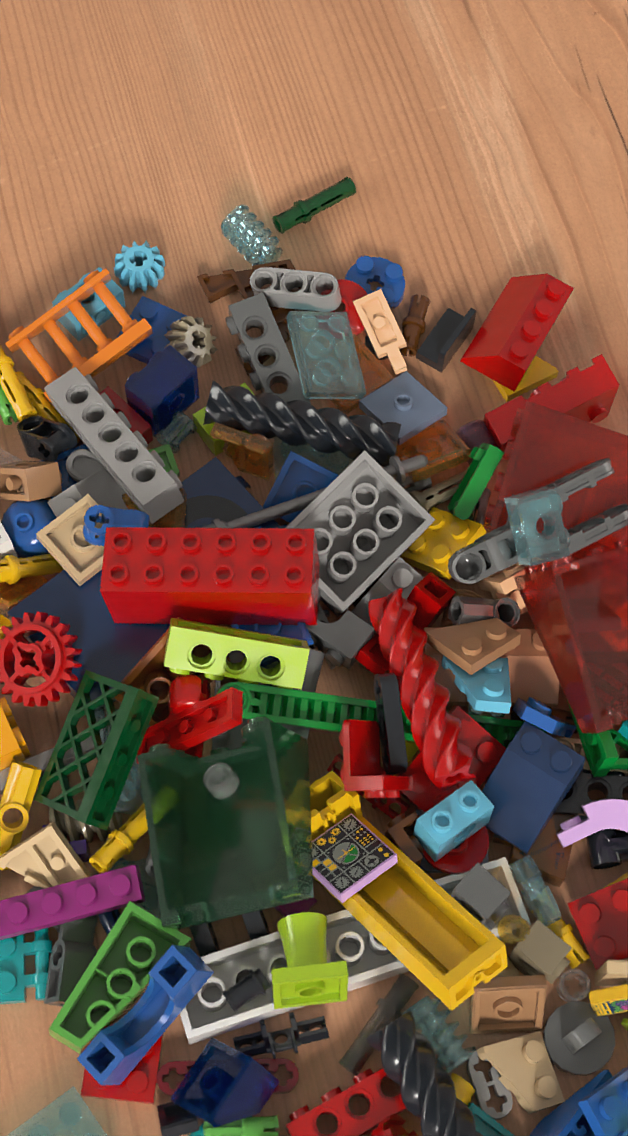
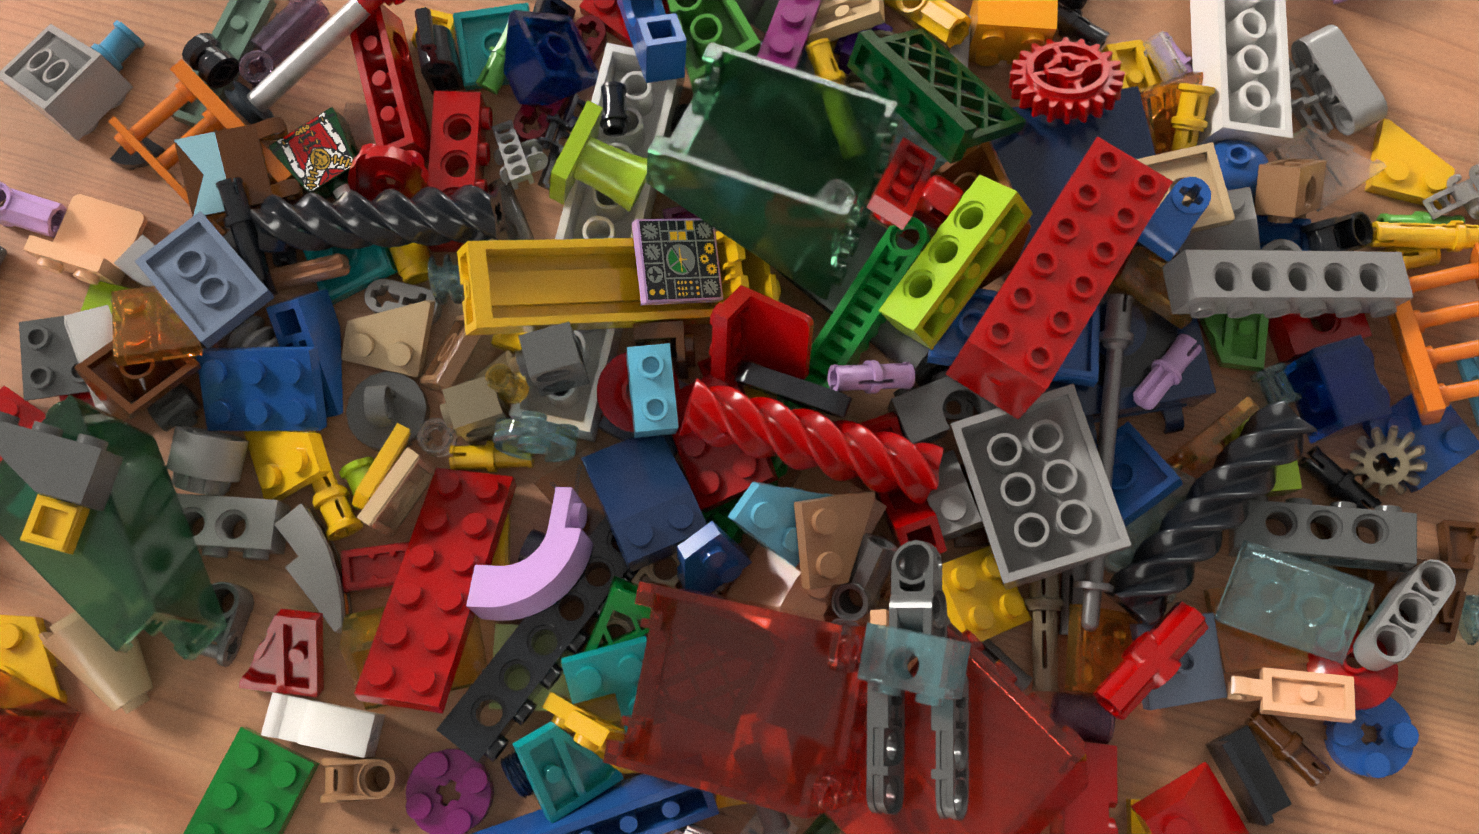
camera: 125 degrees right, 10 degrees up
(221, 366) = (1337, 481): none -> black pin
(224, 489) = (1166, 372): none -> lavender axle
(328, 1048) = (518, 157): none -> light grey piece
(347, 675) = (871, 376): none -> lavender pin
(421, 416) = (1151, 660): none -> red piece
(475, 480) = (1041, 681): green container -> none

